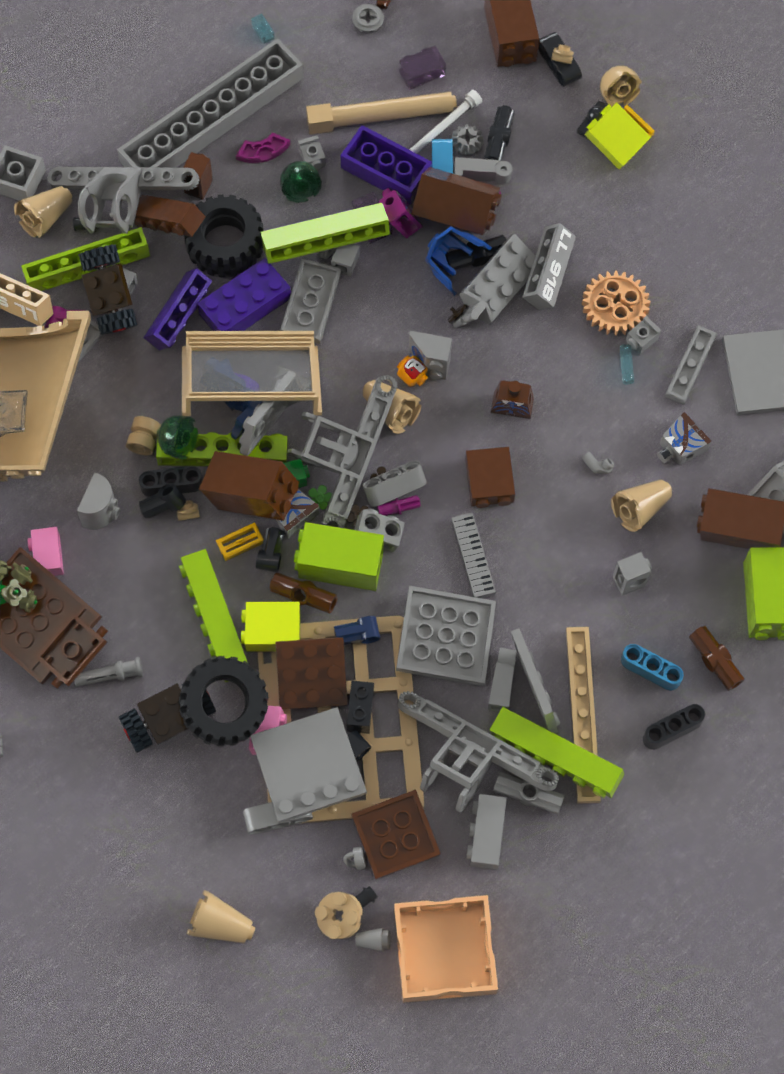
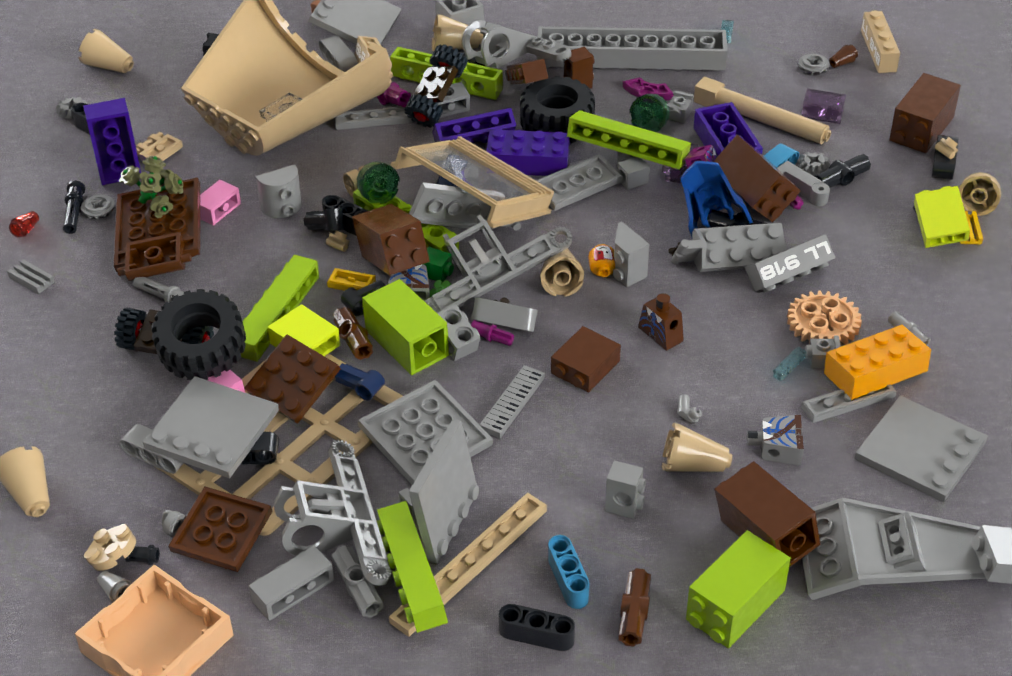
camera: 45 degrees right, 25 degrees down
(360, 707) = (300, 425): black brick -> none
(471, 100) = (842, 144): white piece -> none
(679, 267) = (897, 319): none -> light grey pin
(688, 318) = (877, 361): none -> light orange brick

